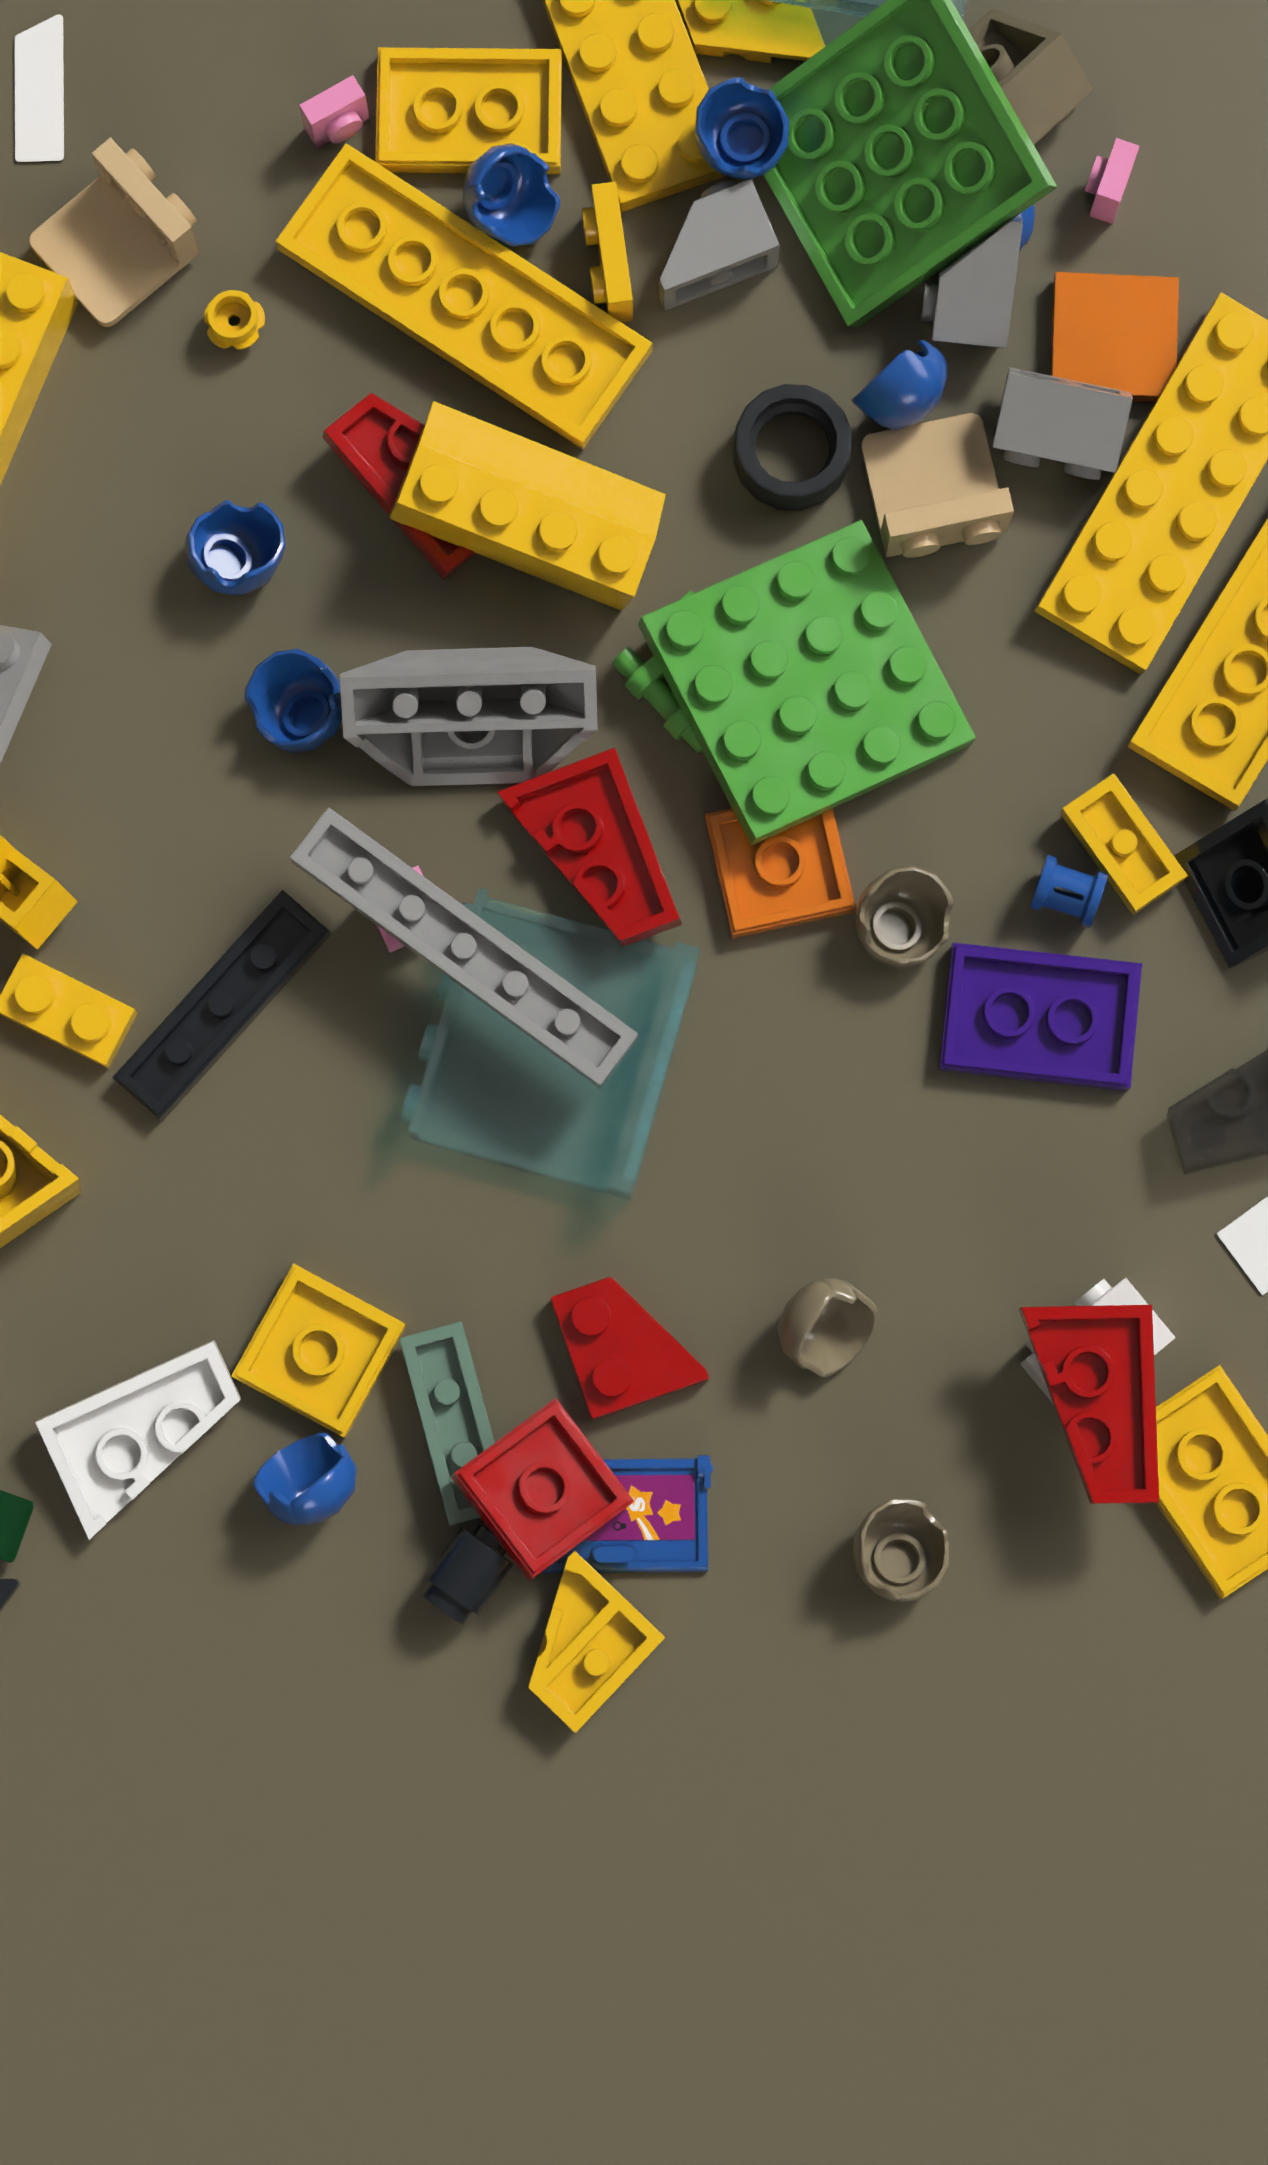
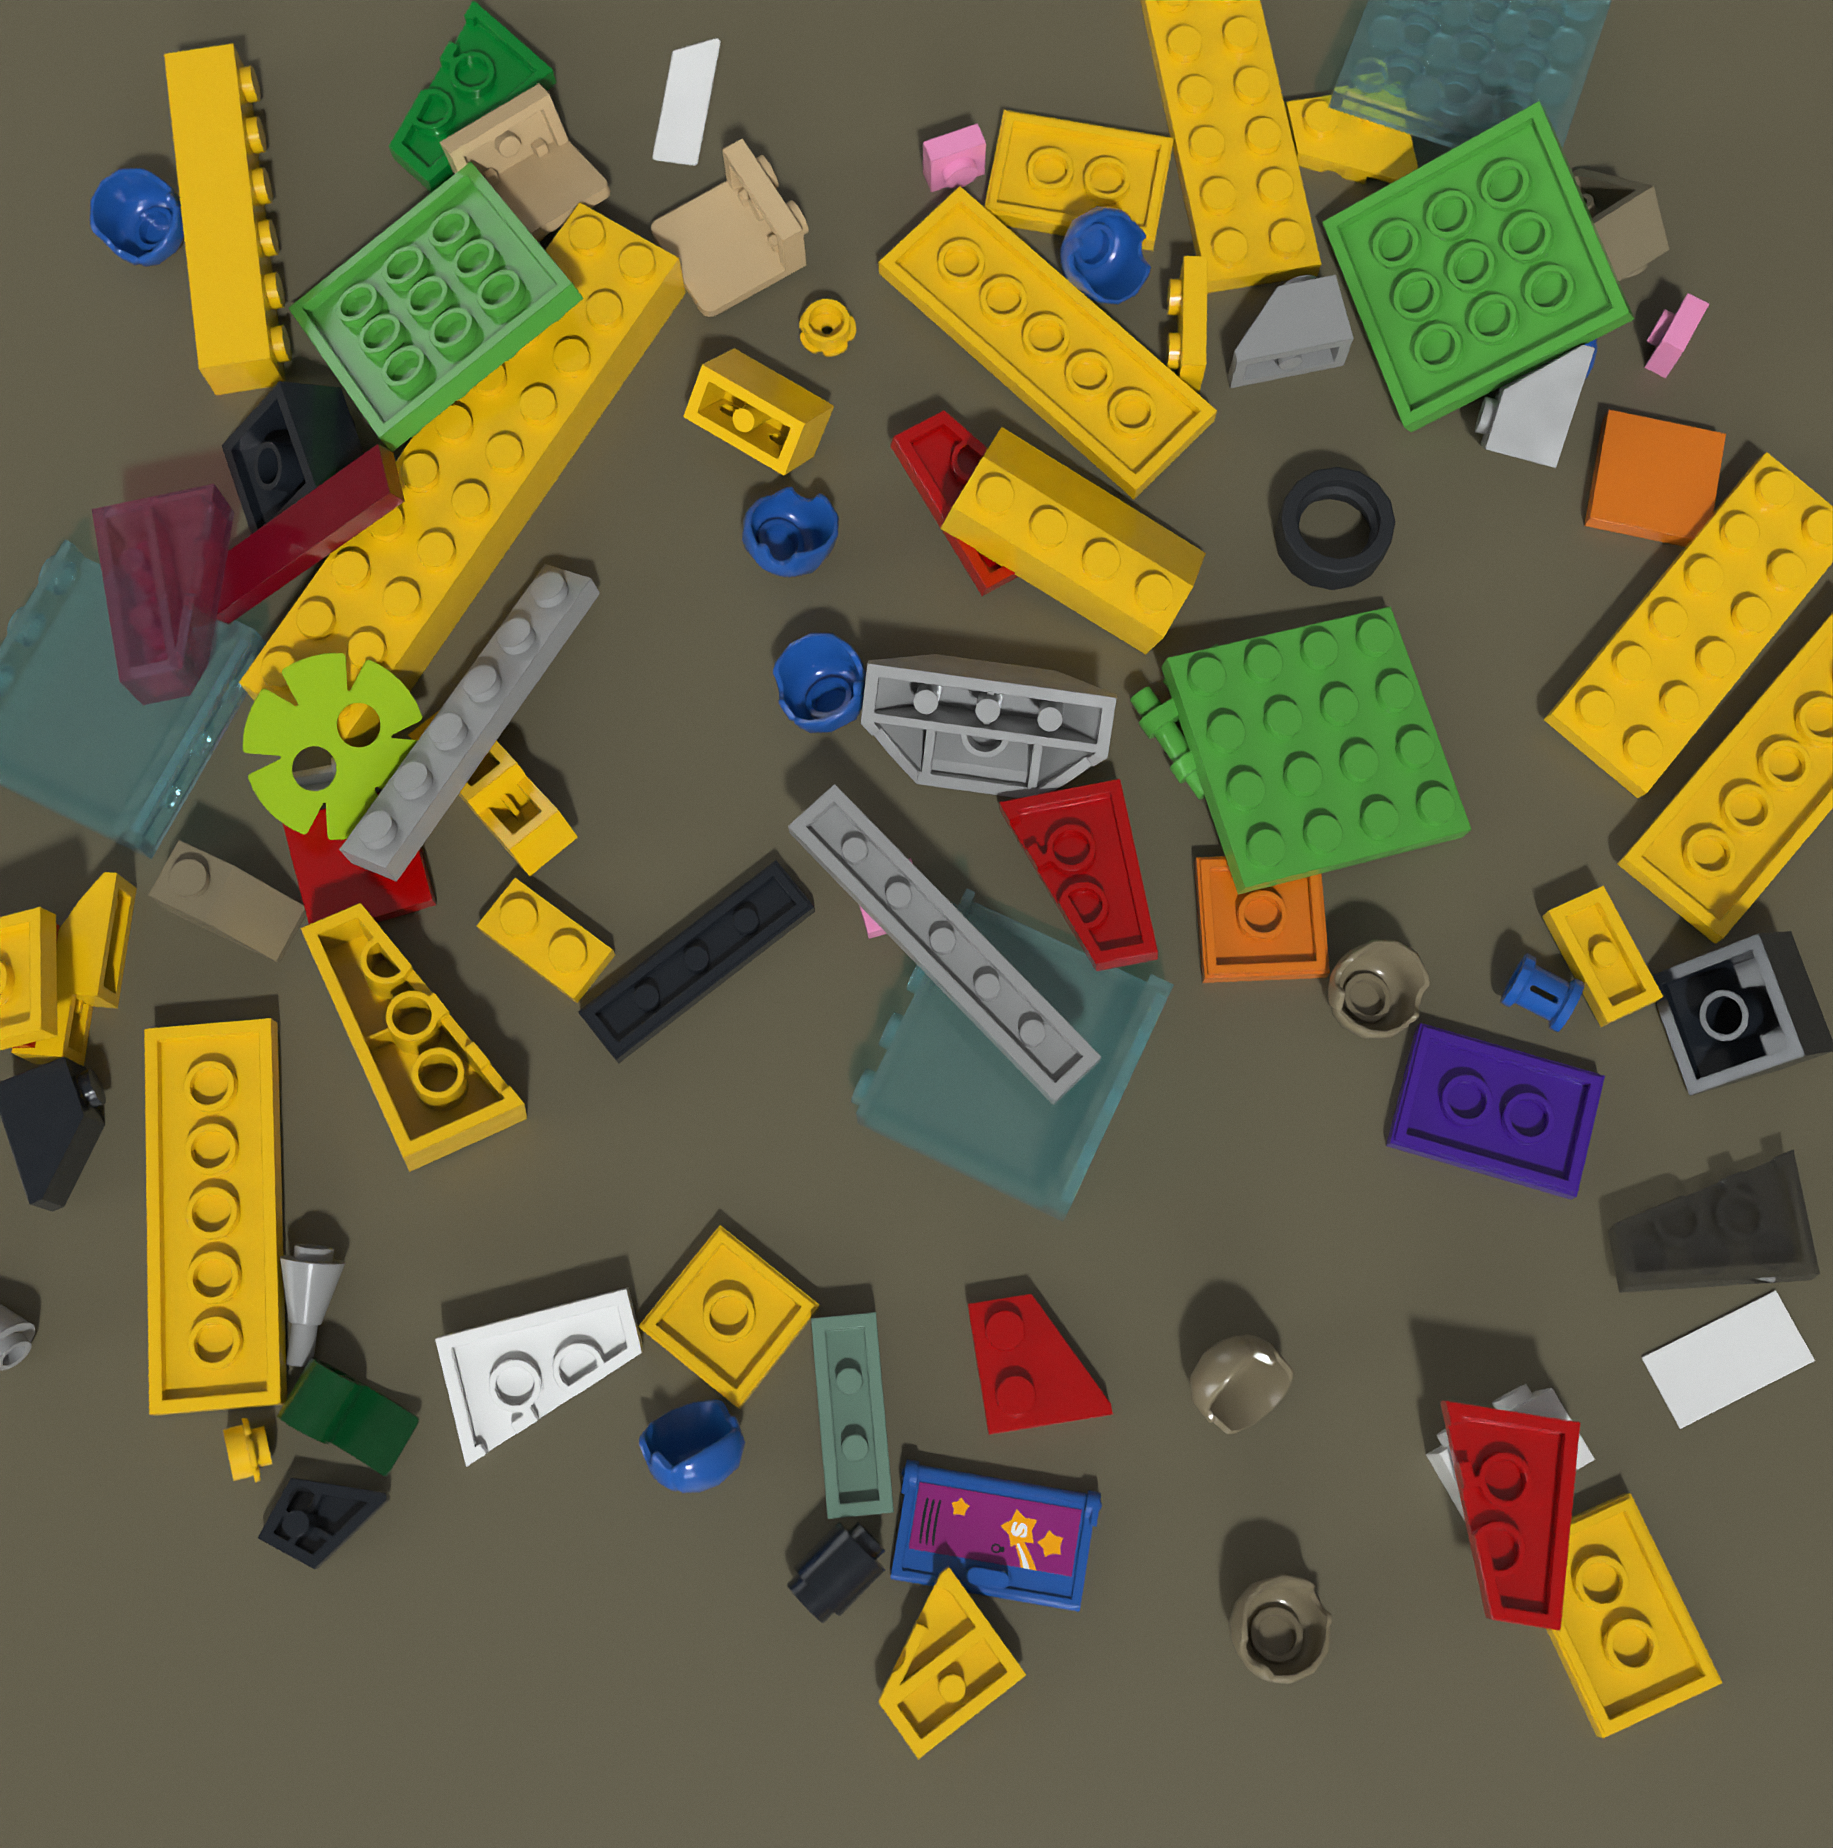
camera: 10 degrees right, 5 degrees down
(179, 425) = (758, 411): none -> yellow brick
(542, 1489) = (927, 1499): red tile -> none
(741, 129) = (1333, 227): blue hair -> none
(905, 388) = (1452, 489): blue hair -> none
(935, 486) = (1466, 587): tan bracket -> none
(1061, 423) = (1599, 545): light grey brick -> none

